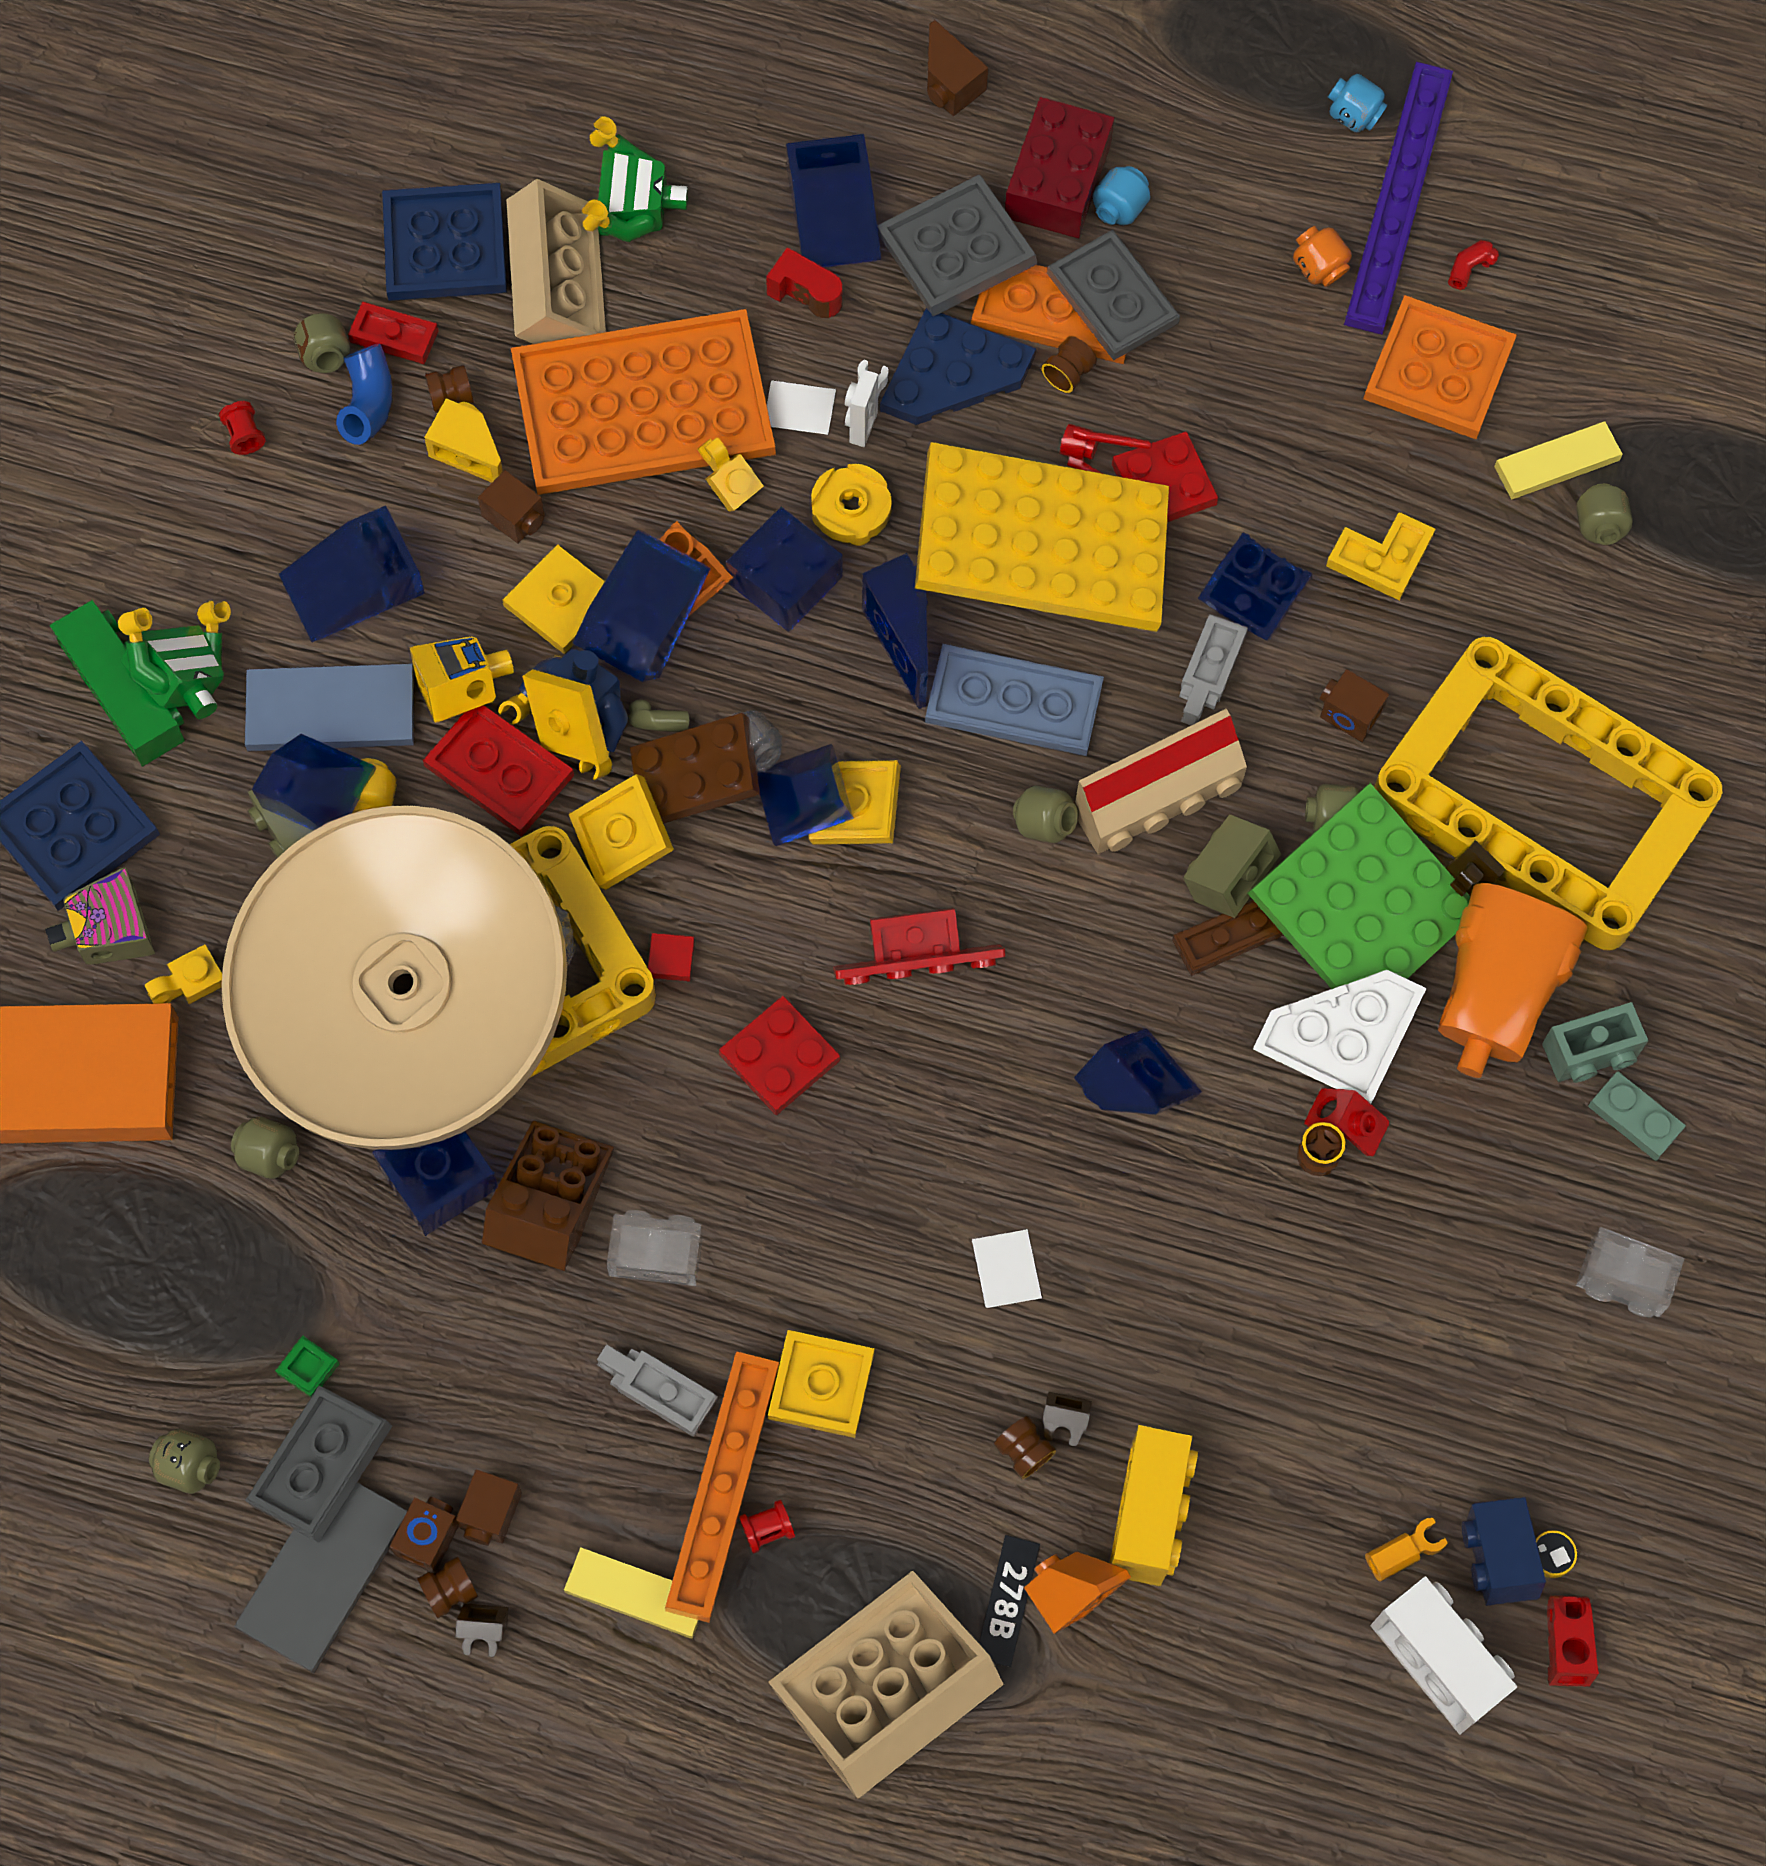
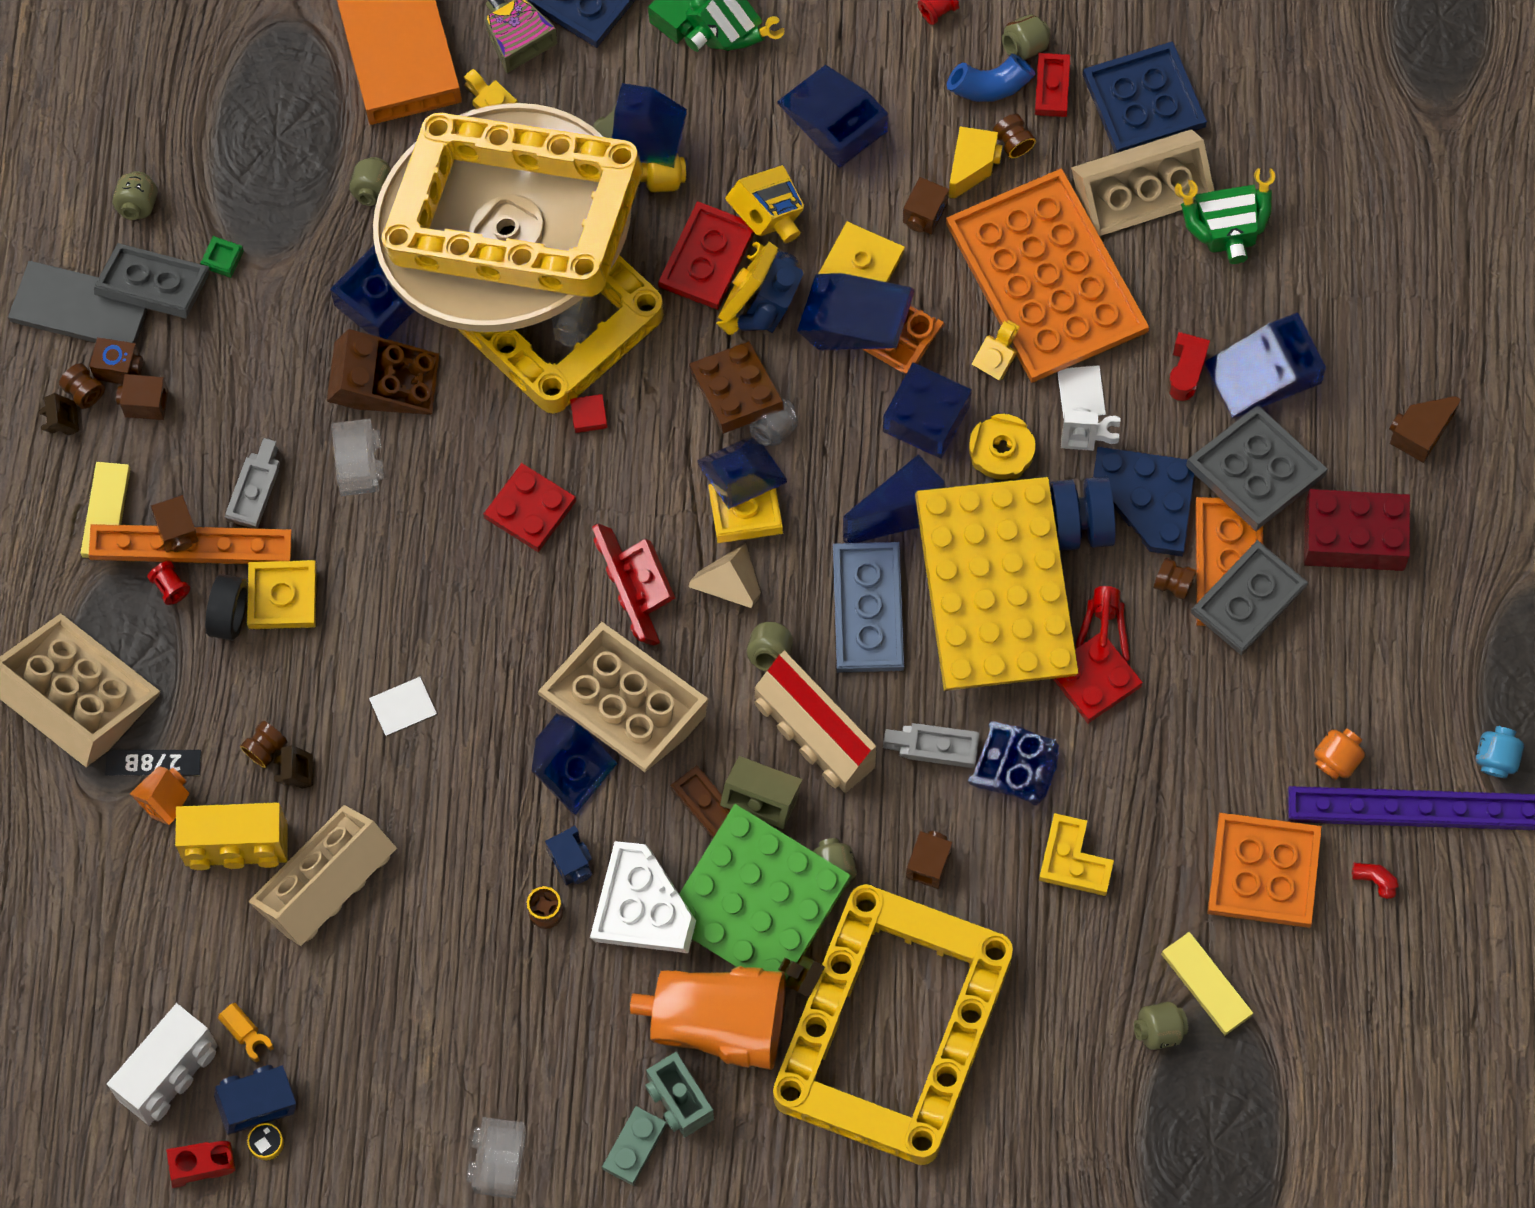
camera: 80 degrees right, 0 degrees up
(323, 908) = (523, 148): none -> yellow beam
(330, 705) = (726, 127): sand blue tile -> none
(621, 832) = (673, 349): yellow plate -> none
(657, 720) = (776, 356): olive arm -> none
(702, 1490) = (174, 524): none -> reddish brown brick
(829, 1452) = (226, 607): none -> black tyre
(940, 844) = (730, 578): none -> tan slope
(972, 417) = (1090, 513): none -> dark blue wheel
(1080, 987) = (625, 698): none -> tan slope
(1121, 195) = (1347, 585): dark azure head -> none
(1213, 1394) = (323, 875): none -> tan slope
(1261, 1105) = (569, 856): none -> dark blue brick
(1353, 1116) = (574, 927): red bracket -> none

